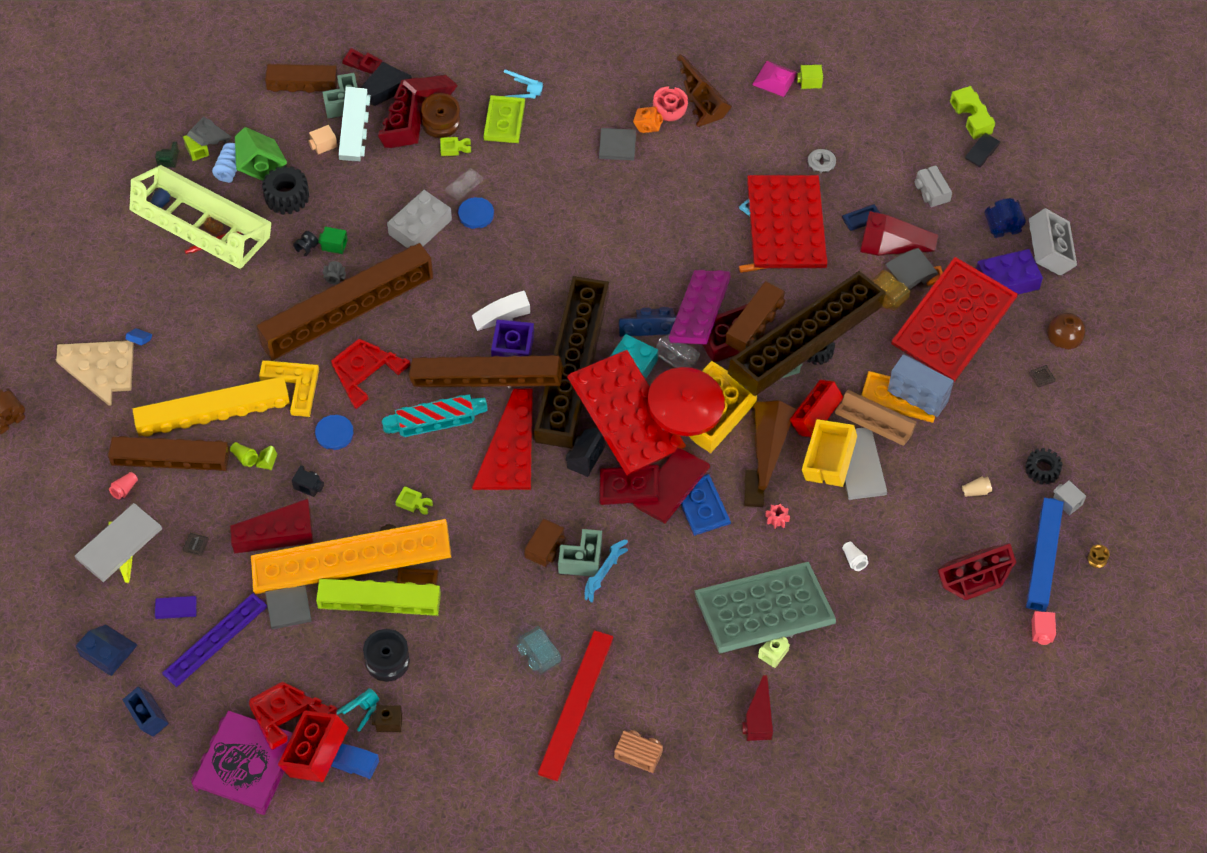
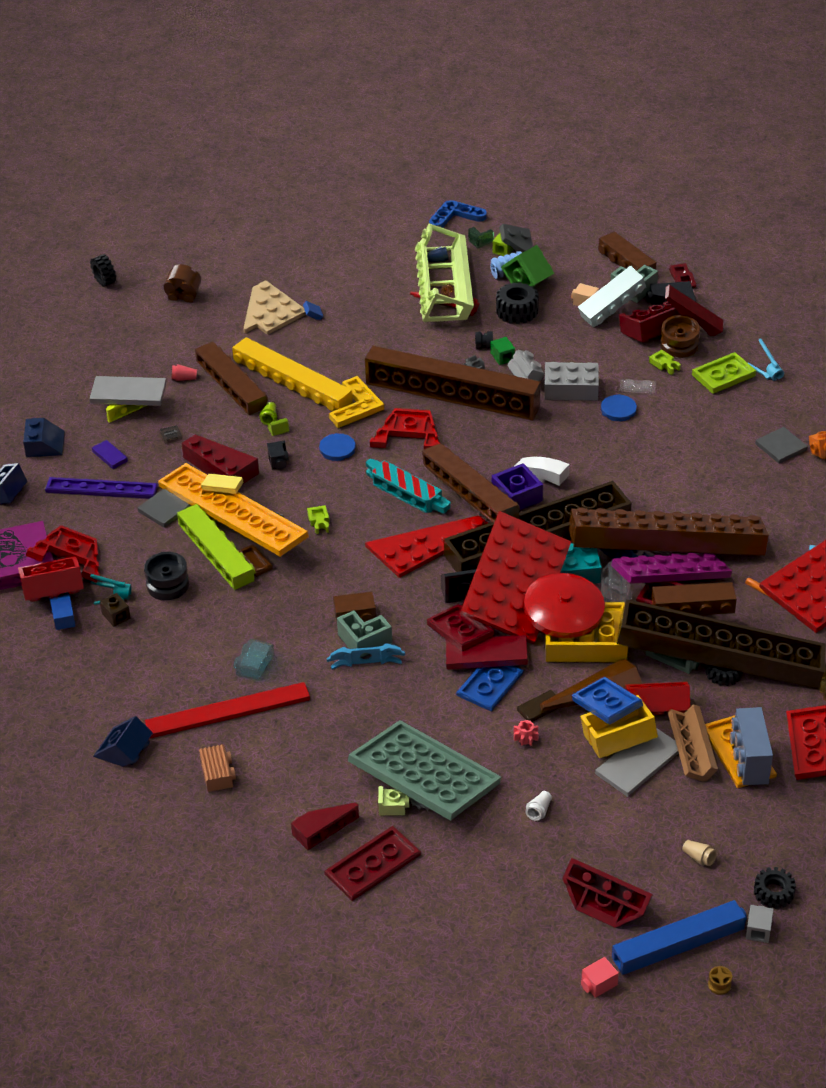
camera: 55 degrees right, 15 degrees down
(108, 147) = (456, 208): none -> blue beam
(316, 544) = (222, 483): none -> light yellow tile
(375, 240) = (525, 366): none -> light grey brick
(553, 803) = (124, 742): none -> dark blue slope
(660, 283) = (668, 531): none -> reddish brown brick
(805, 442) = (607, 700): none -> blue tile
(821, 703) = (372, 863): none -> dark red tile

